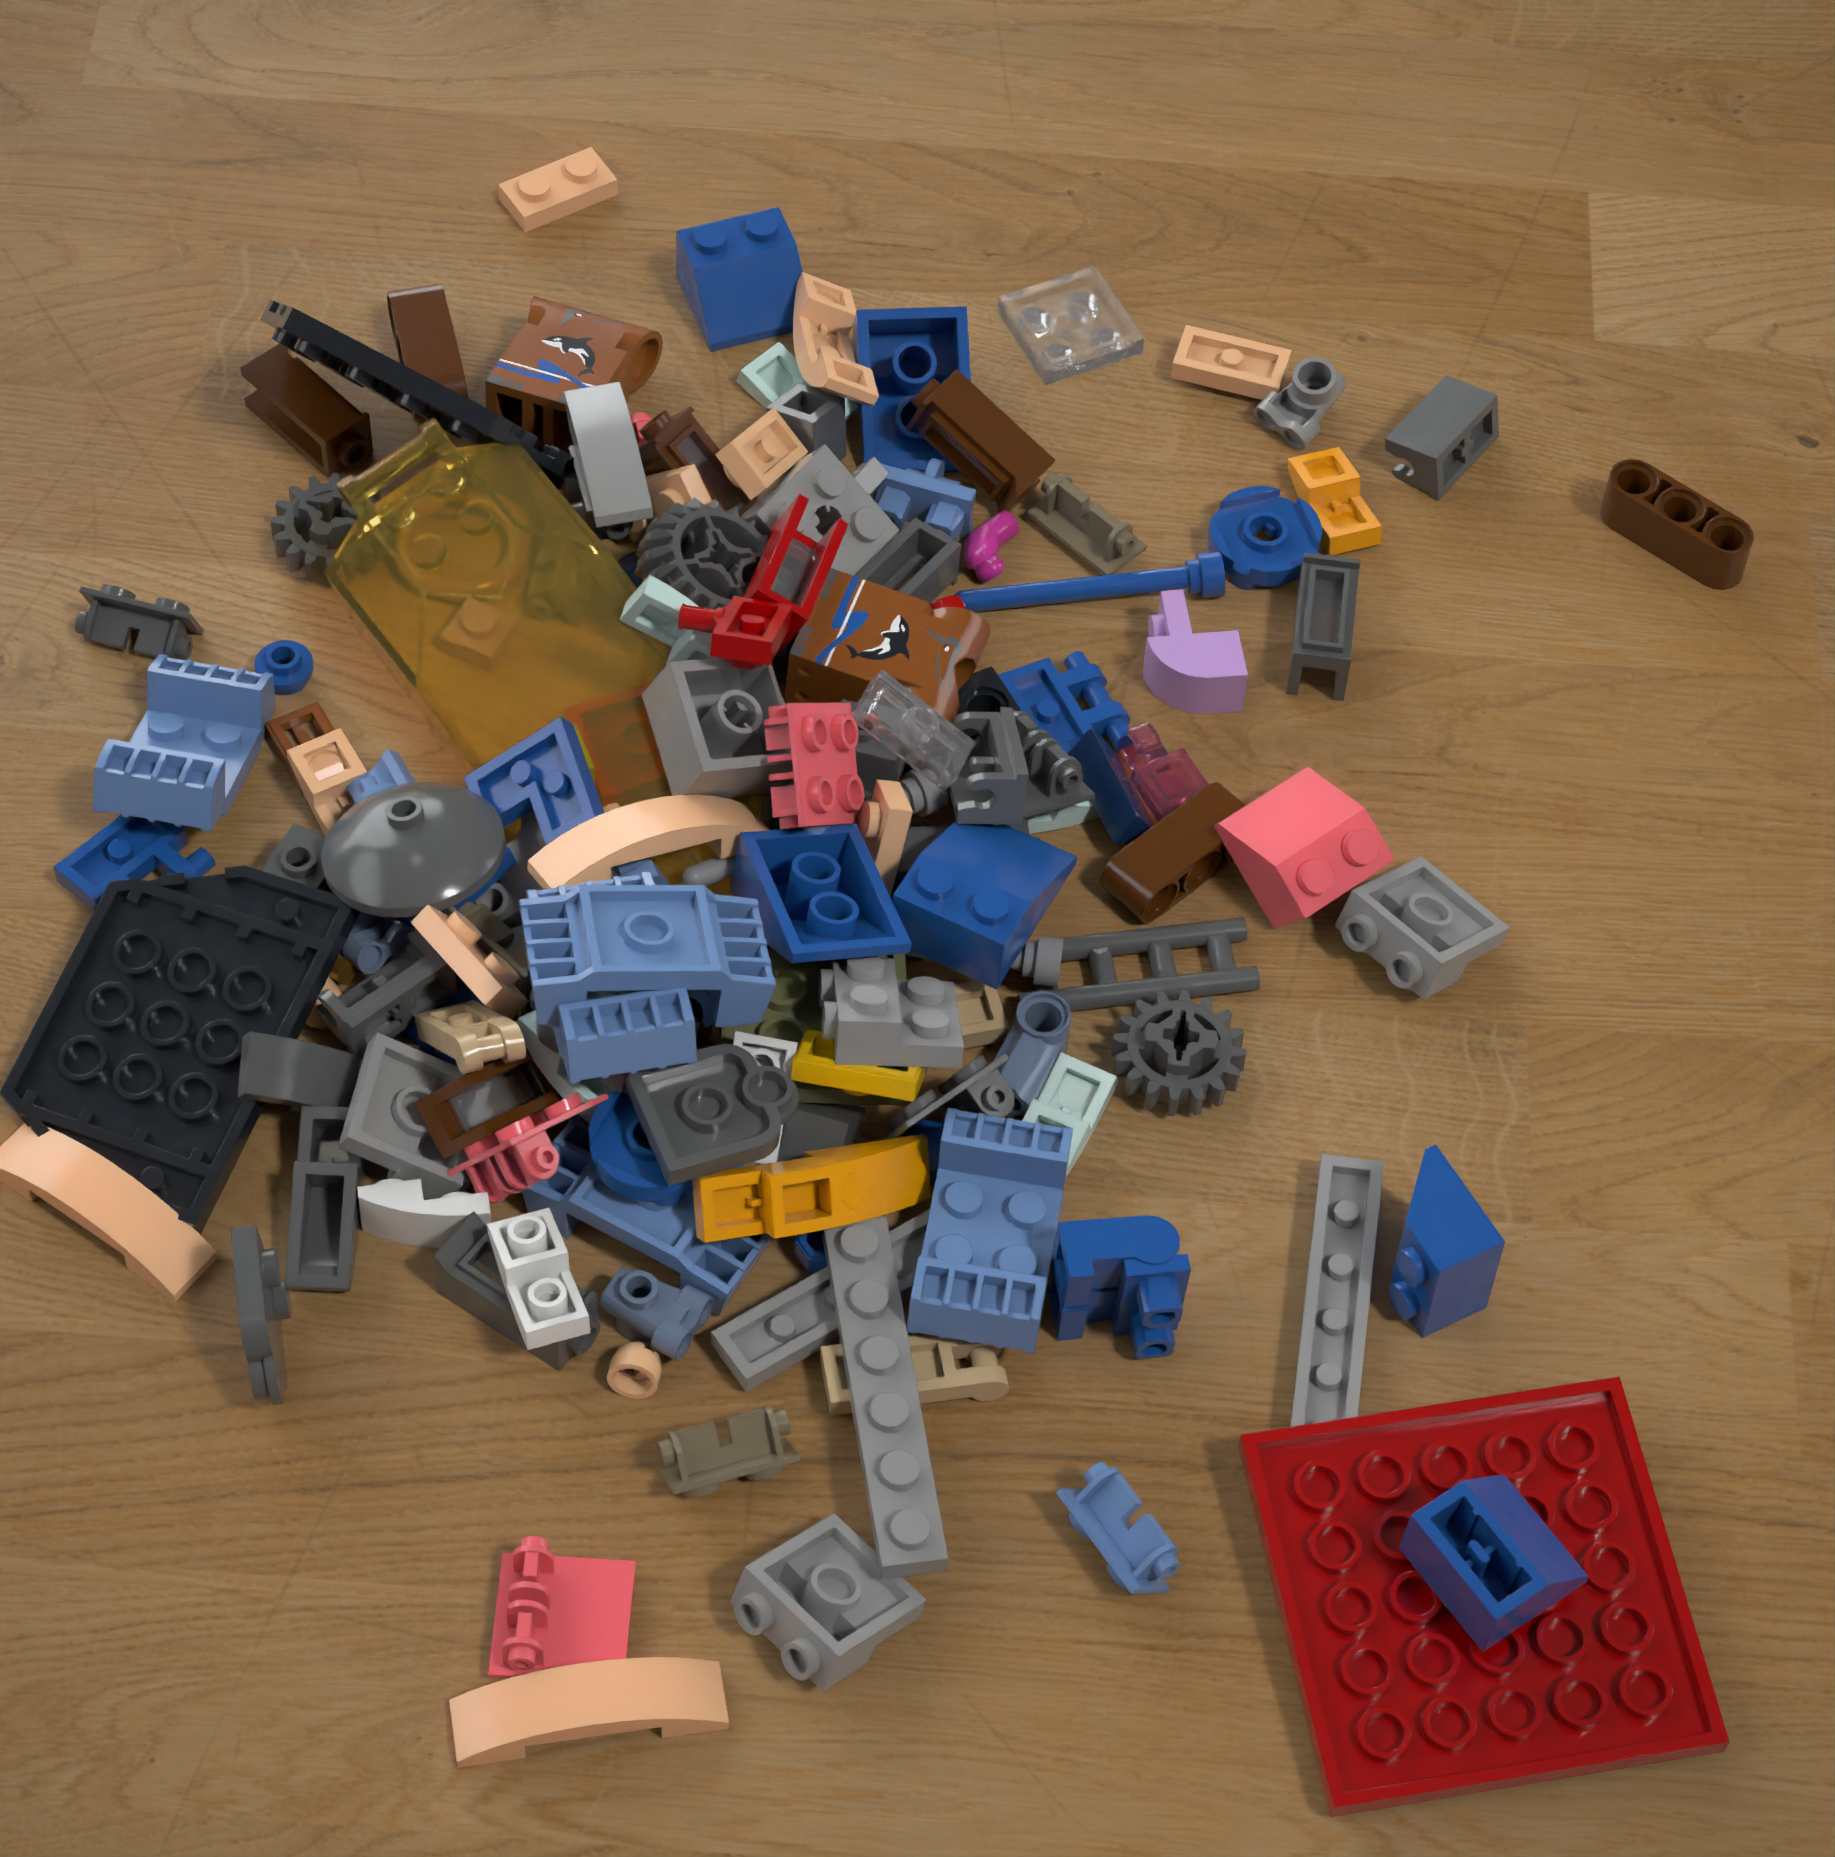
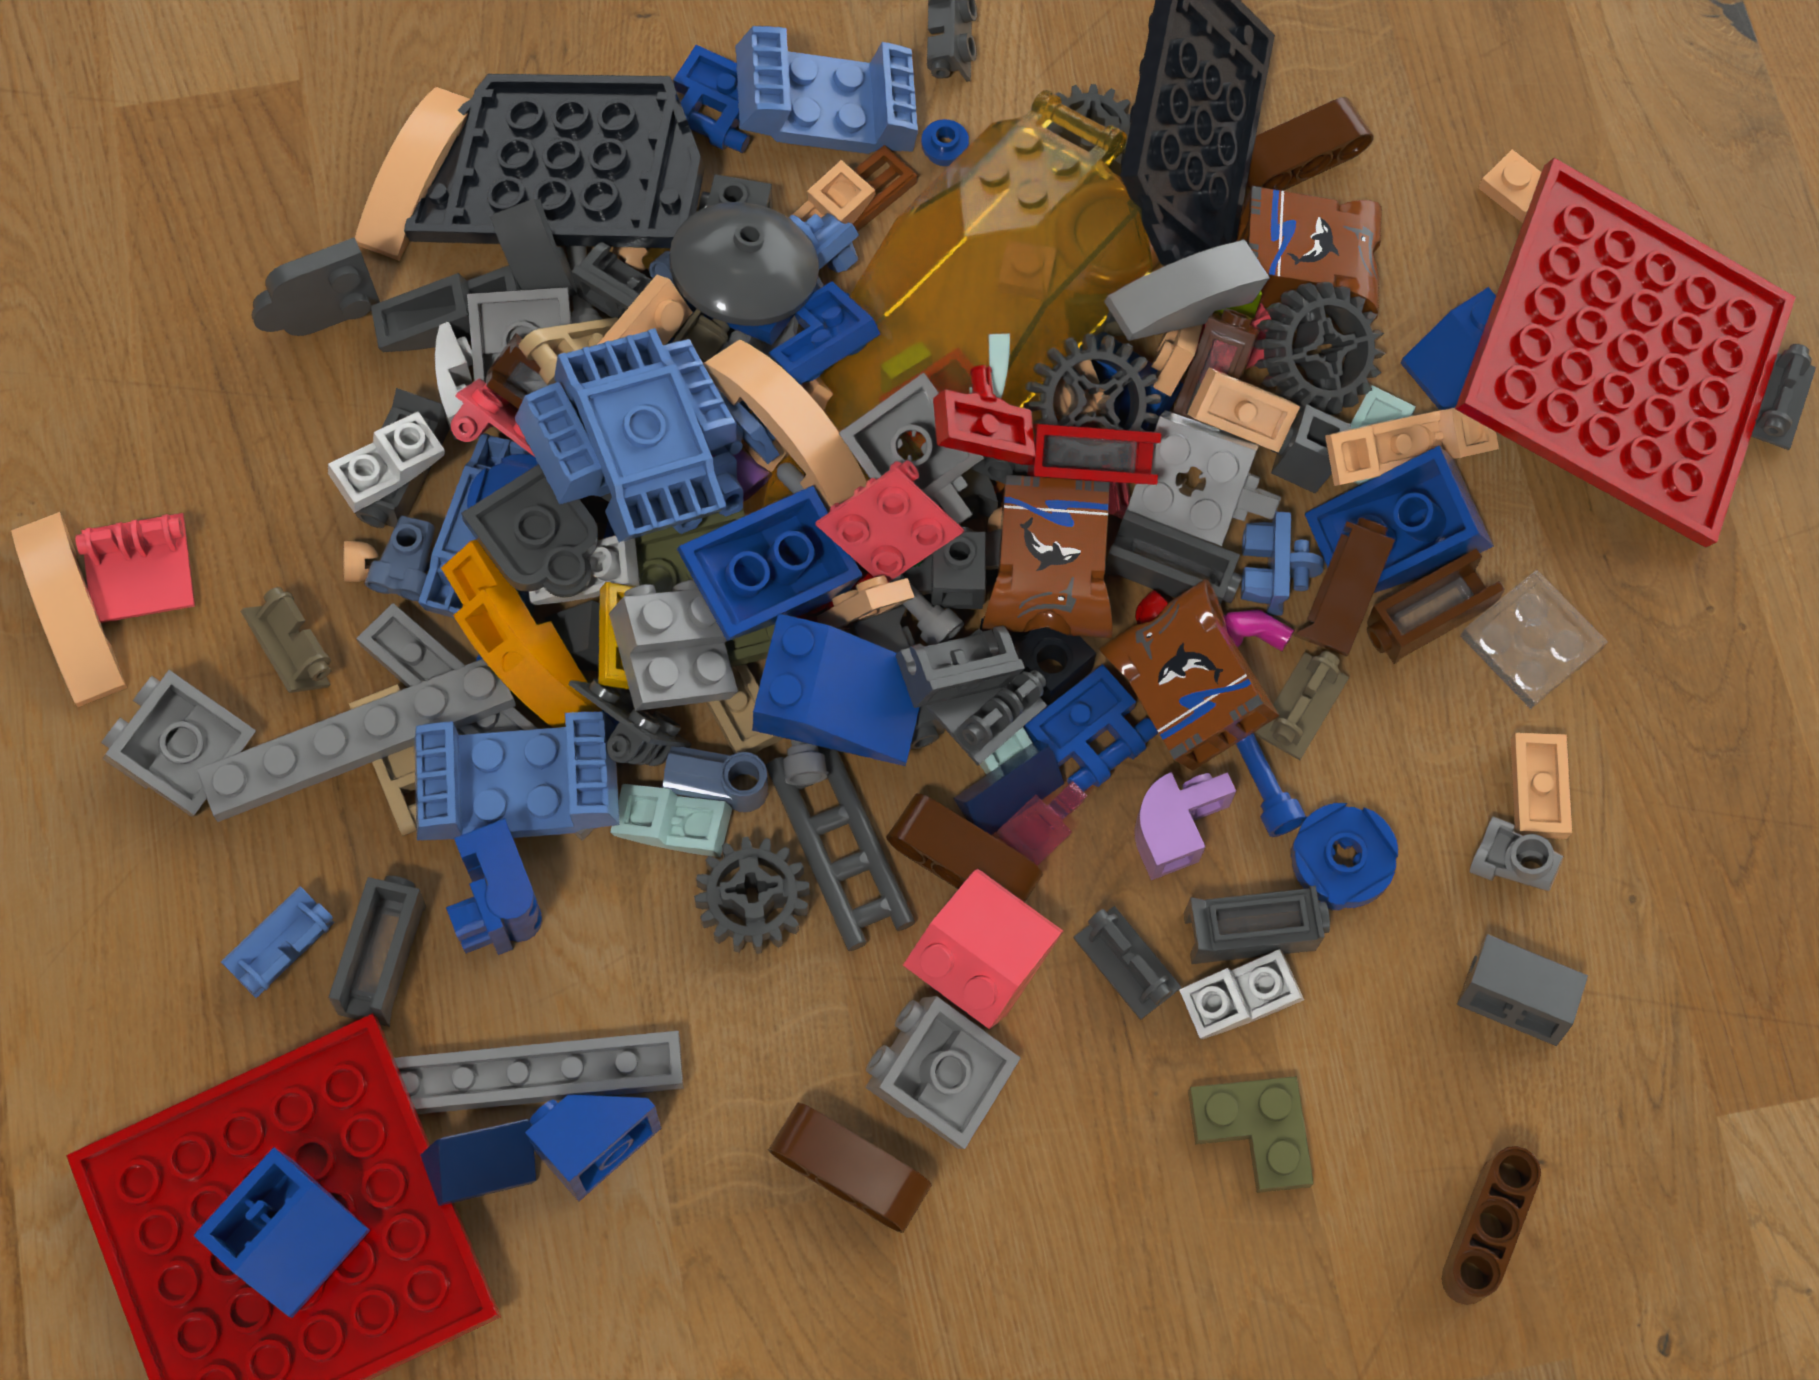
camera: 75 degrees right, 15 degrees up
(686, 369) = (1333, 385): none -> dark grey gear
(789, 147) = (1627, 353): none -> plate
(865, 69) = (1785, 397): none -> dark grey hinge
(912, 730) = (961, 591): clear plate -> none
(1017, 382) = (1431, 607): none -> reddish brown window
(1047, 589) = (1192, 678): none -> dark orange piece
(1154, 1428) = (377, 949): none -> dark grey window
(1333, 490) = (1413, 909): light orange slope -> none
(1337, 743) = (1126, 962): none -> dark grey hinge
(1390, 660) = (1241, 995): none -> white slope
(1436, 1367) = (480, 1162): none -> dark blue slope
(1507, 1034) = (850, 1167): none -> reddish brown beam
(1528, 674) = (1268, 1116): none -> olive plate

